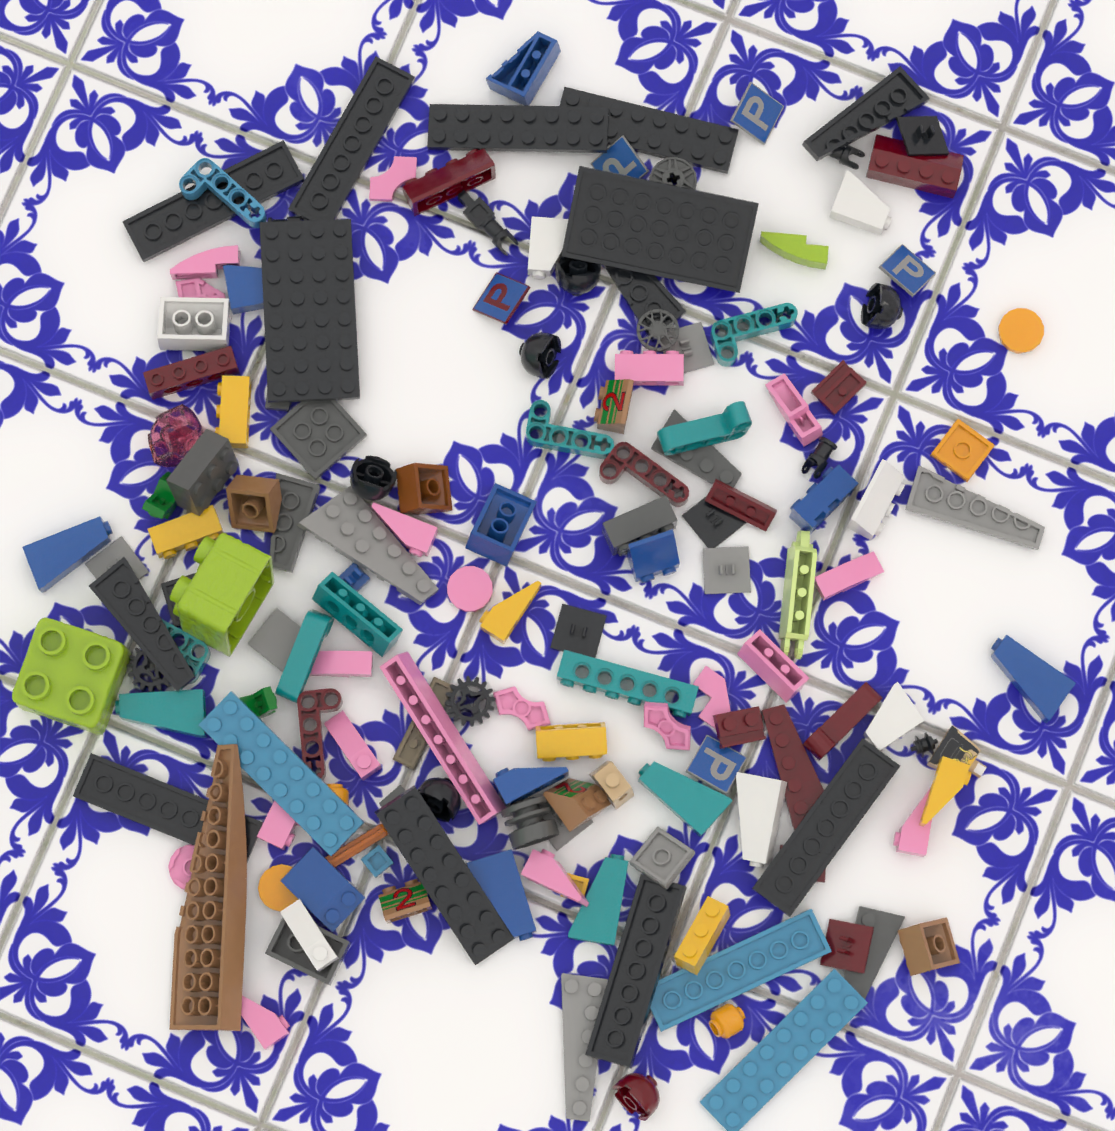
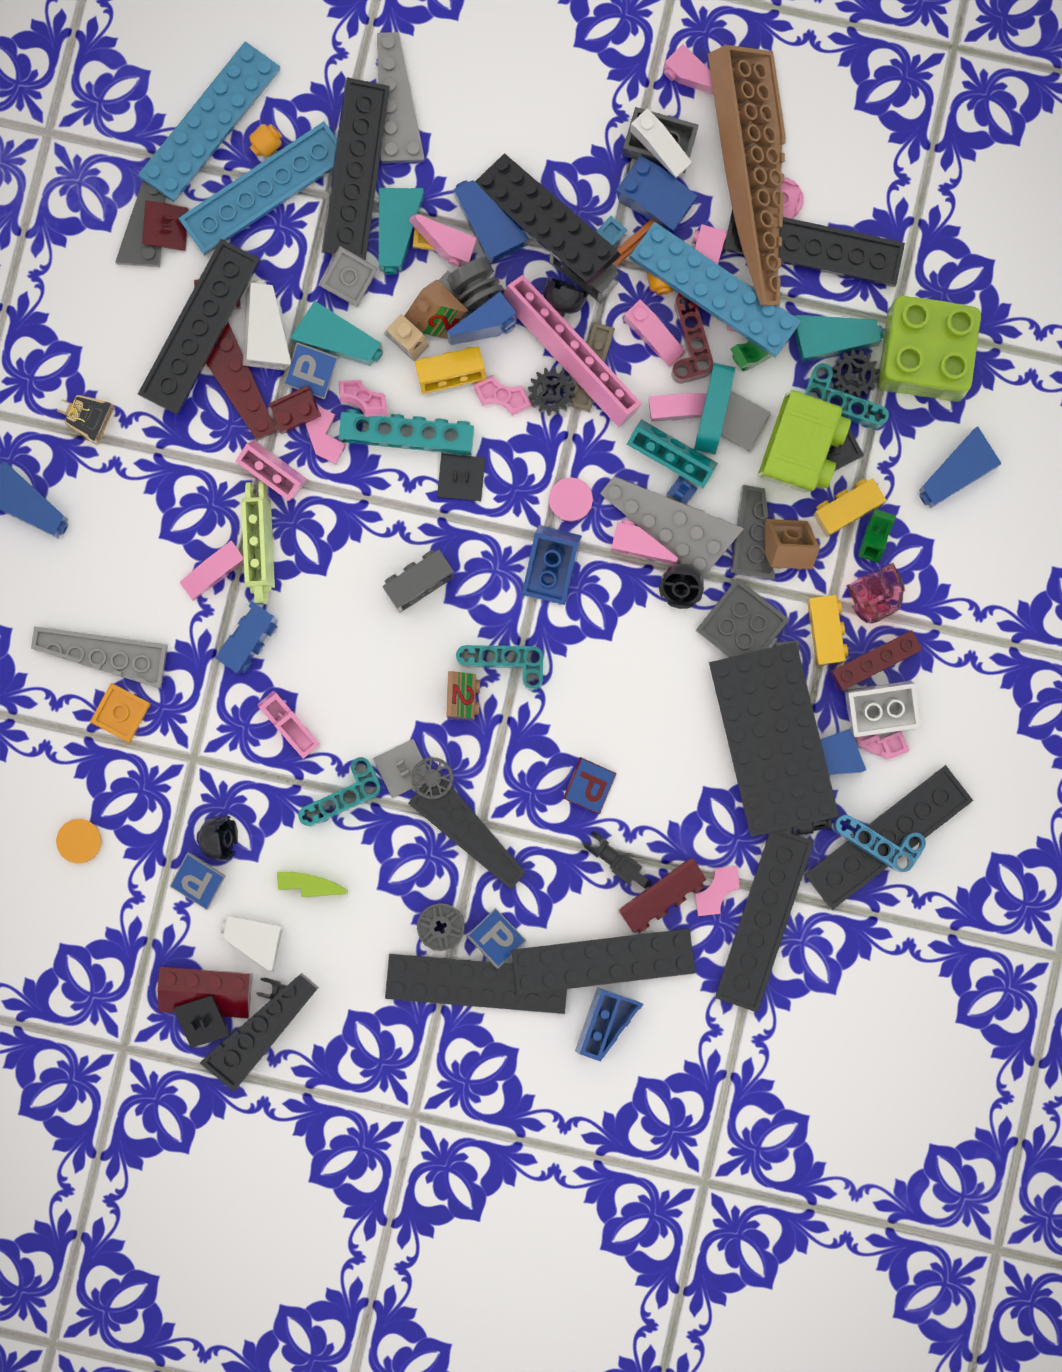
camera: 170 degrees right, 5 degrees up
(111, 555) = (908, 465): light grey piece -> none
(133, 609) = (879, 414): black wing -> none
(202, 472) = (844, 559): dark grey brick -> none
(207, 263) = (880, 772): bright pink slope -> none
(273, 891) = (704, 188): light orange tile -> none
(404, 901) = (581, 193): medium nougat slope -> none
(423, 489) = (631, 585): dark orange slope -> none
(506, 614) = (532, 478): yellow slope -> none
(539, 354) = (543, 735): black cylinder -> none
(545, 245) = (554, 847): white slope -> none
(577, 275) = (519, 822): black cylinder -> none
(638, 1094) = (335, 61): dark red cylinder -> none
(647, 478) = (419, 632): dark red beam -> none
(650, 368) = (434, 739): bright pink brick -> none
(653, 556) = (400, 553): blue slope -> none
(659, 229) = (445, 874): black plate -> none
(702, 935) = (299, 209): yellow brick -> none
(703, 462) = (383, 669): dark grey wing -> none
(706, 431) = (370, 684): teal beam -> none
(712, 523) = (349, 606): black piece -> none
(726, 570) = (330, 558): light grey piece -> none
(741, 505) = (325, 620): dark red plate -> none
(757, 113) = (369, 1017): blue piece -> none
(819, 457) = (256, 681): black piece -> none
(838, 387) = (248, 753): dark red plate -> none
(842, 721) = (199, 430): dark red beam -> none
(877, 501) = (196, 645): white slope -> none
(893, 719) = (152, 439): white slope -> none
(912, 837) = (116, 342): bright pink slope -> none
(924, 745) = (118, 421): black wheel -> none
(928, 946) = (89, 237): medium nougat slope -> none
(947, 782) = (91, 380): yellow slope -> none

